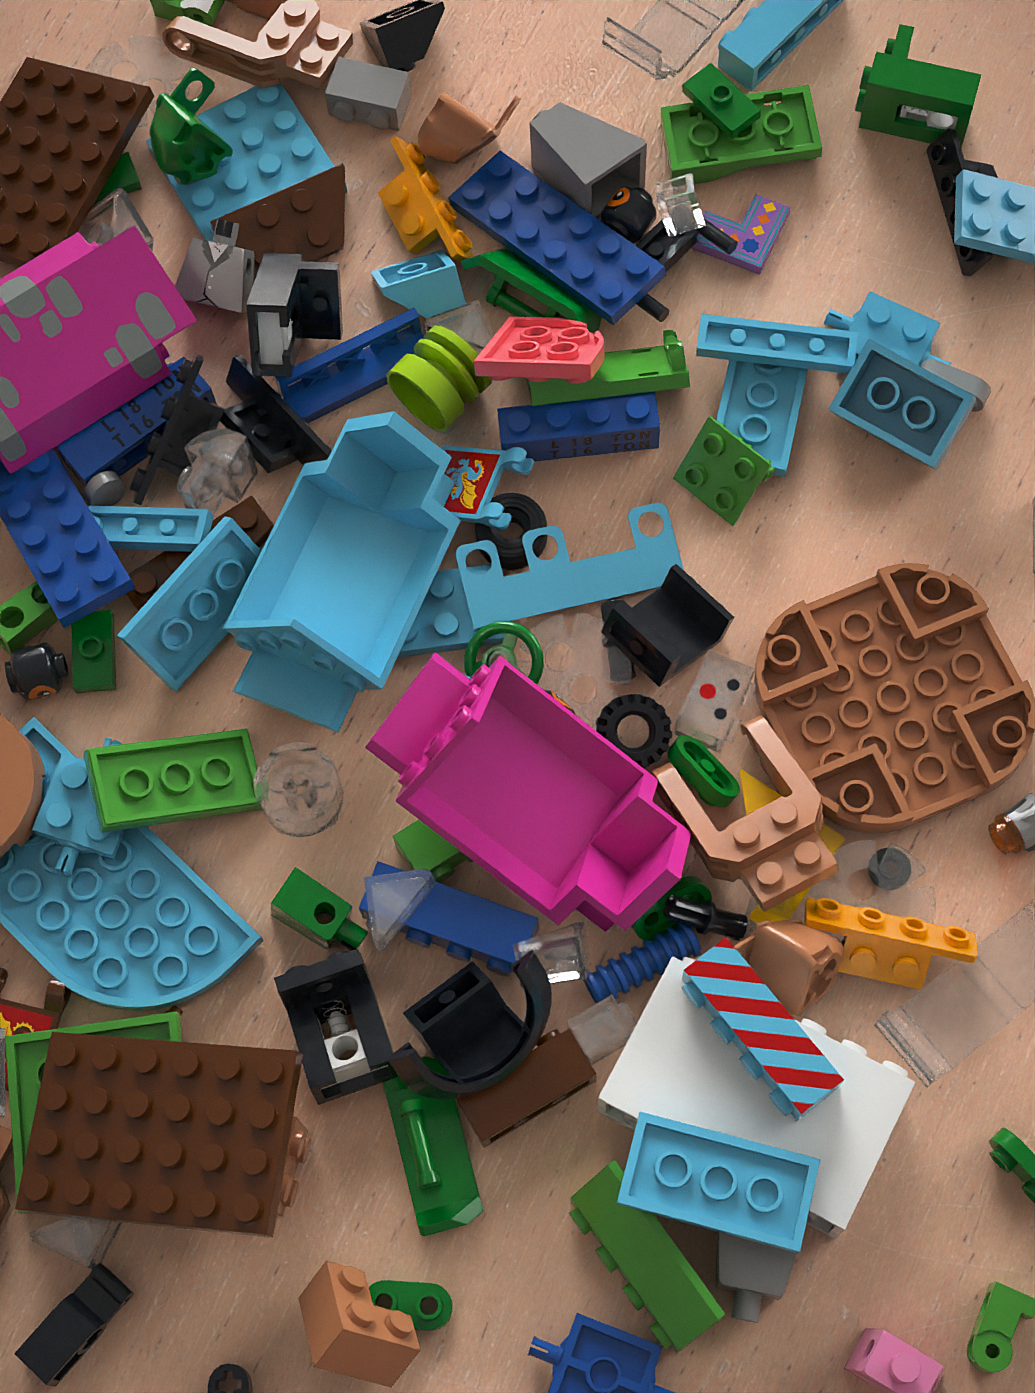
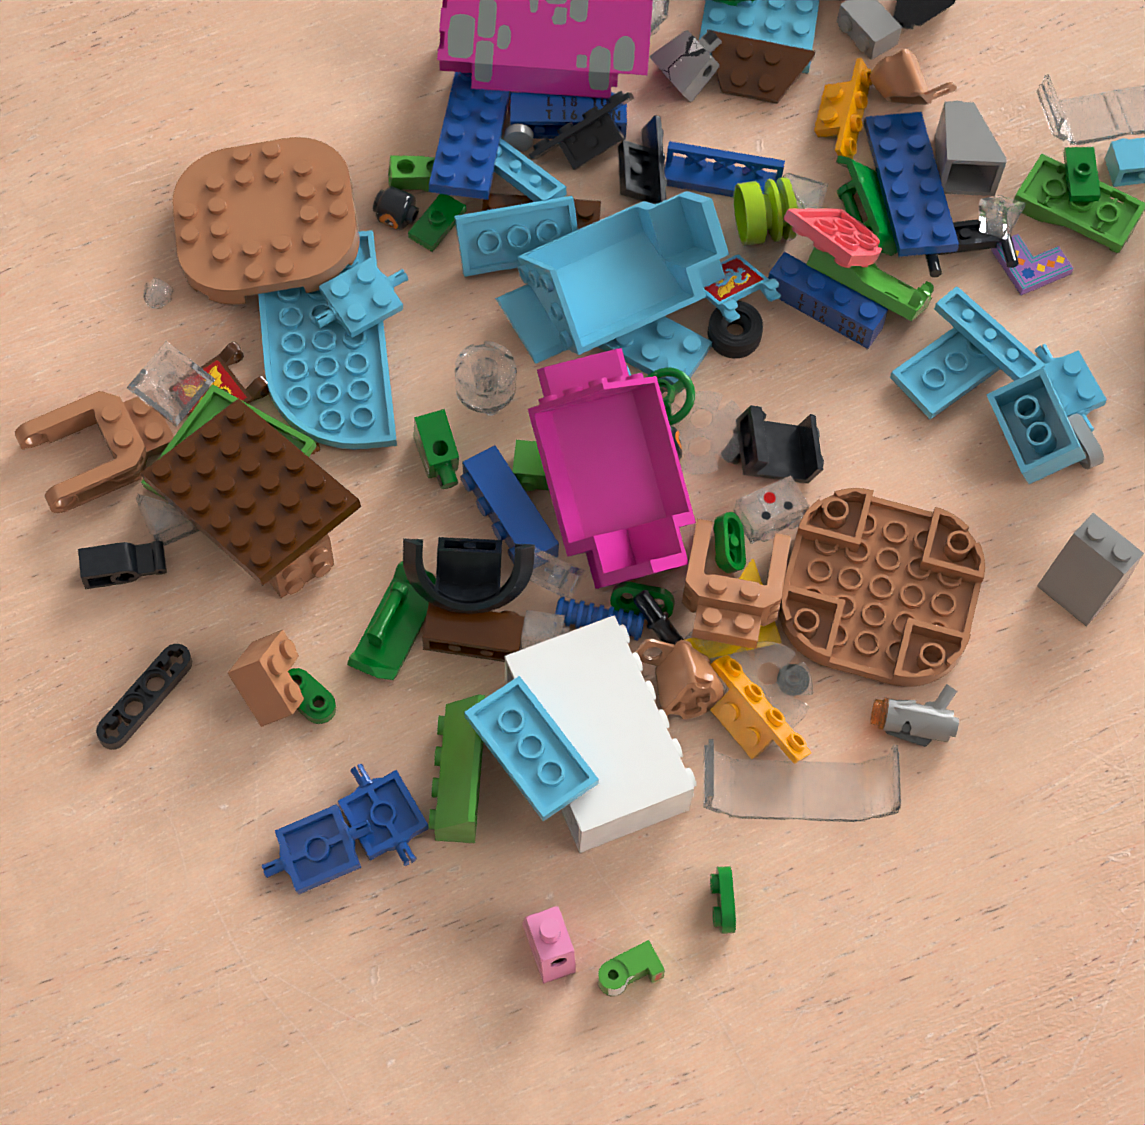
camera: 30 degrees right, 5 degrees down
(172, 779) = (418, 317): bright green tile -> none
(218, 469) = (589, 170): clear brick -> none
(288, 304) = (708, 106): black brick -> none
(329, 994) = (406, 495): black brick -> none
(393, 900) = (483, 469): clear slope -> none
(422, 283) = (803, 153): medium azure slope -> none
(566, 584) = (740, 380): medium azure piece -> none
(629, 213) = (964, 200): black head -> none
(651, 712) = (726, 488): black tyre -> none
(722, 470) = (892, 385): bright green hinge -> none
(751, 1272) = (519, 826): light grey torso -> none
(760, 1029) = (627, 687): brick -> none

